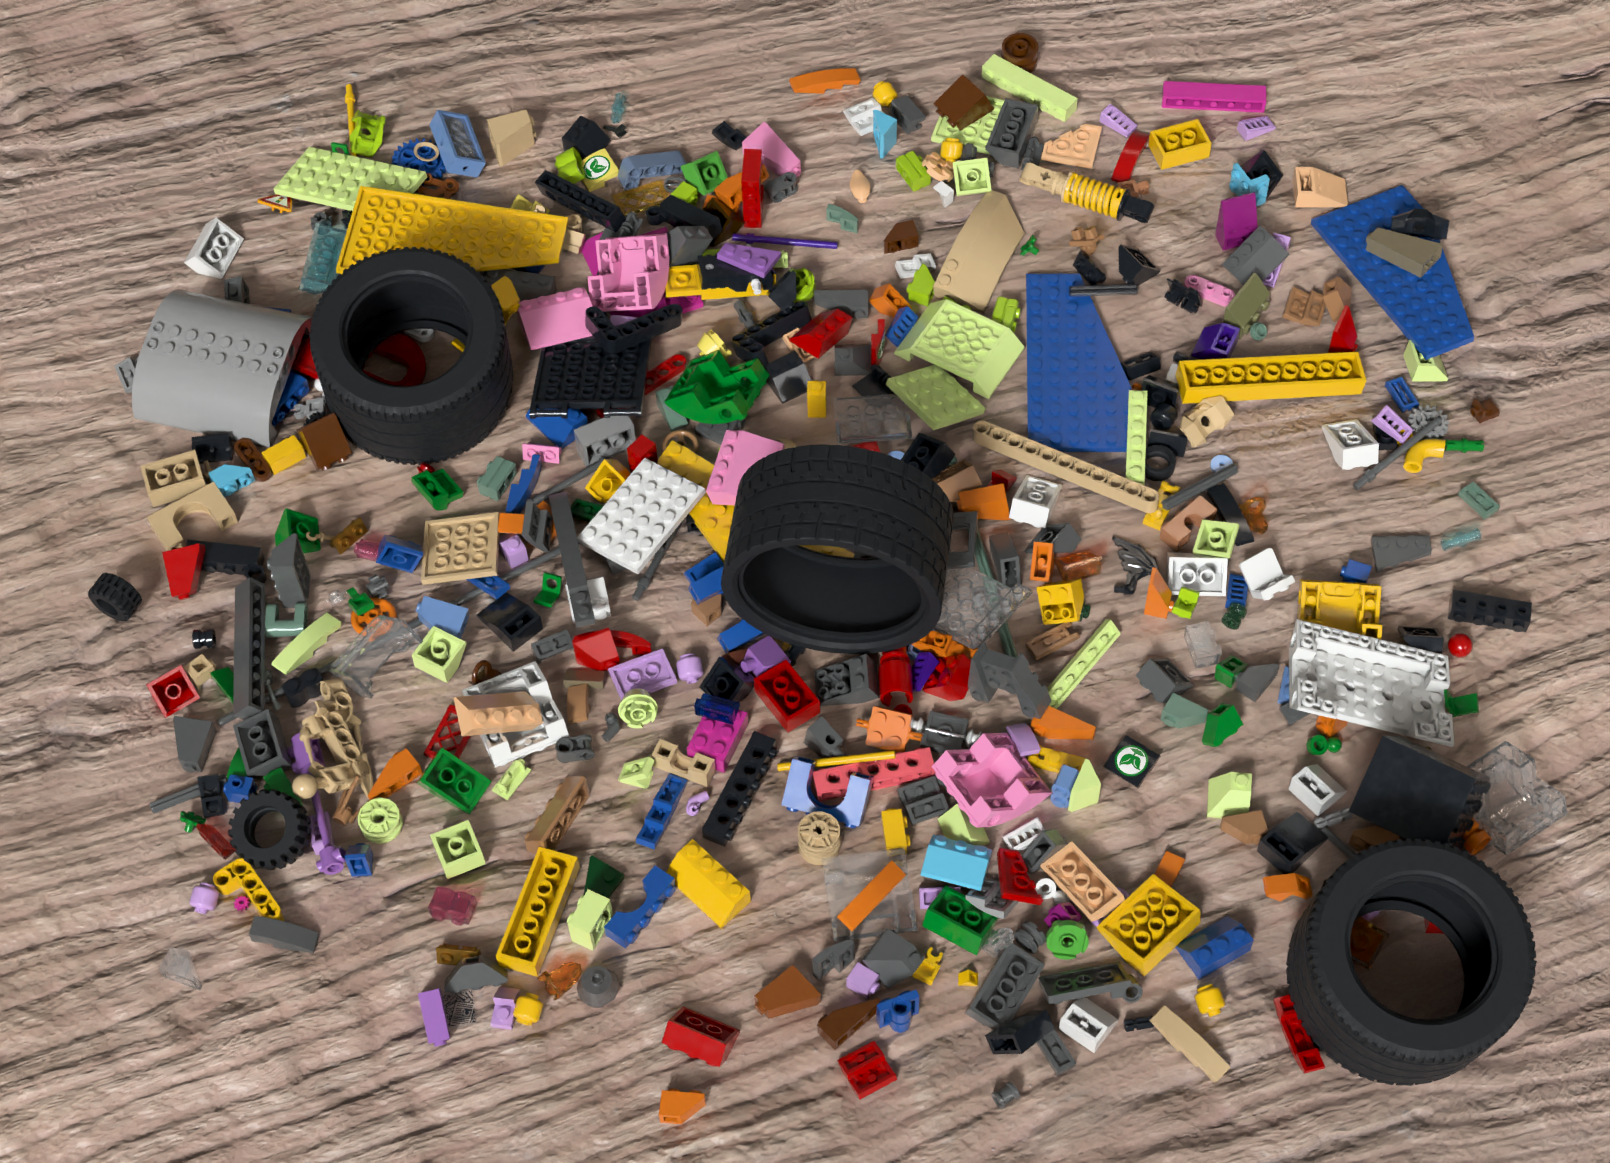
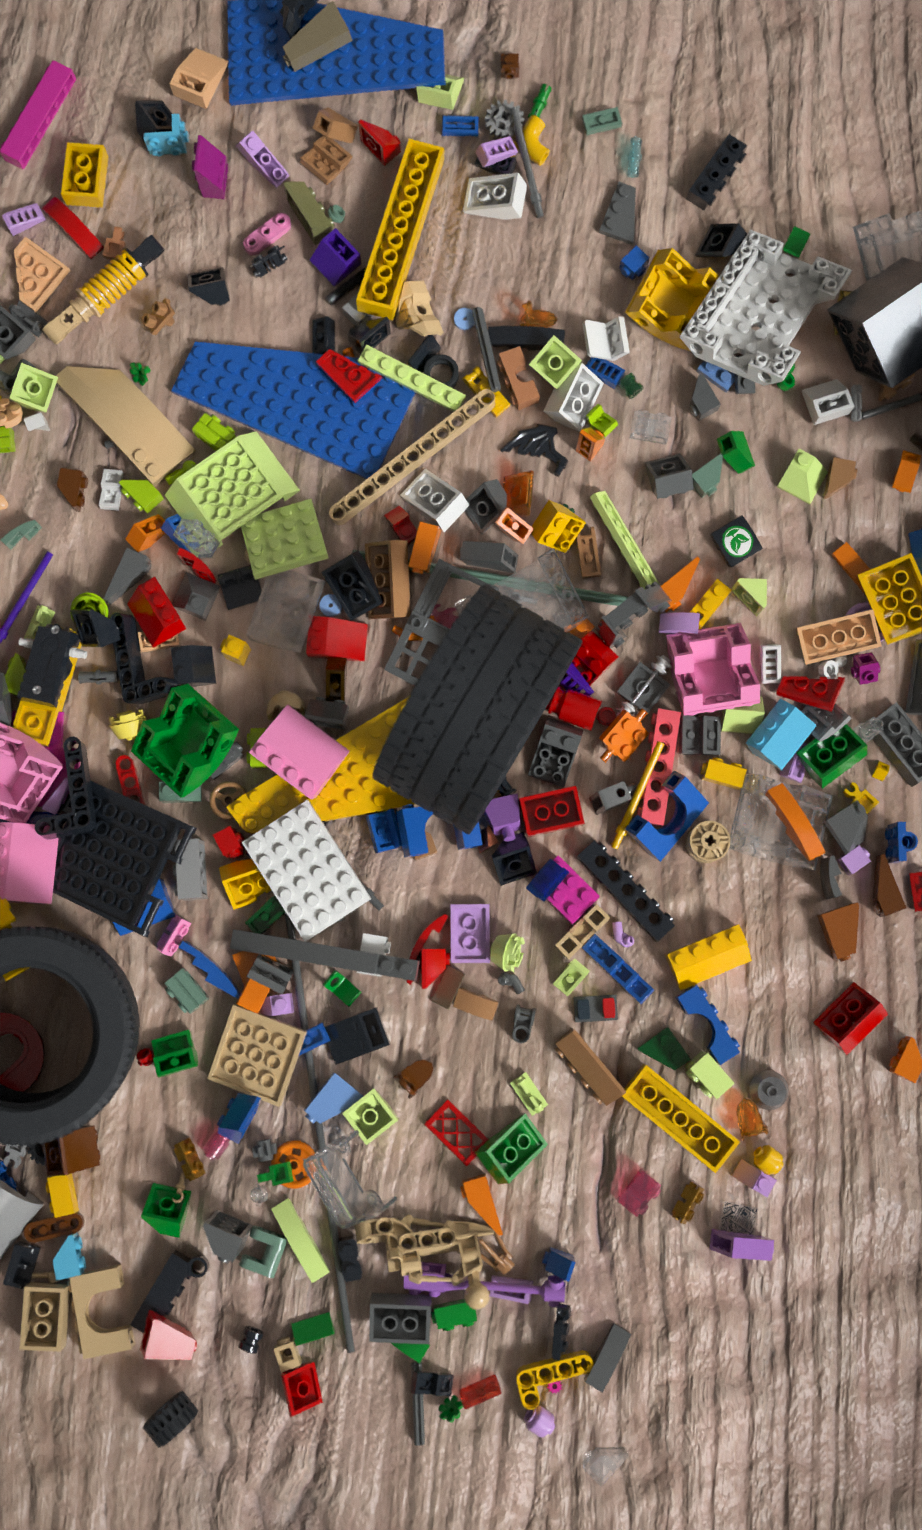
camera: 70 degrees left, 25 degrees up
(193, 742) = (366, 1385): dark grey slope -> none
(239, 788) = (437, 1353): blue brick -> none
(247, 818) = (515, 1360): black tyre -> none
(249, 649) = (287, 1300): dark grey brick -> none
(268, 681) = (323, 1292): light grey hinge -> none
(294, 880) = (561, 1330): none -> black hinge
(380, 809) = (524, 1243): yellowish green wheel -> none
(457, 849) = (587, 1169): yellowish green brick -> none
(475, 974) = (717, 1196): dark grey slope -> none
(497, 713) = (474, 1087): light nougat slope -> none
(514, 745) = (467, 1067): white slope -> none
(551, 645) = (405, 1006): dark grey hinge -> none
(569, 481) = (220, 924): dark grey bar -> none
(616, 808) = (595, 1008): none -> piece
(689, 668) = (482, 887): lavender head -> none
(748, 258) = (44, 646): medium lavender wing -> none
(900, 331) = (196, 538): none -> clear brick
(1029, 937) = (870, 703): dark grey wheel -> none
(1042, 849) = (793, 654): dark grey slope -> none
(1063, 785) = (745, 610): medium blue brick -> none
(1063, 929) = (887, 676): bright green plate -> none
(1087, 269) = (187, 332): black hinge -> none
(1097, 290) = (227, 329): black axle -> none
(1111, 388) = (348, 376): none -> red wing
(1163, 416) = (395, 343): black head -> none
(1229, 669) = (684, 414): green slope -> none
(1247, 134) = (93, 108): lavender slope -> none
(1257, 255) = (260, 174): dark grey slope -> none
(1291, 843) = (869, 447): black slope -> none
(1460, 645) = (739, 213): red piece -> none

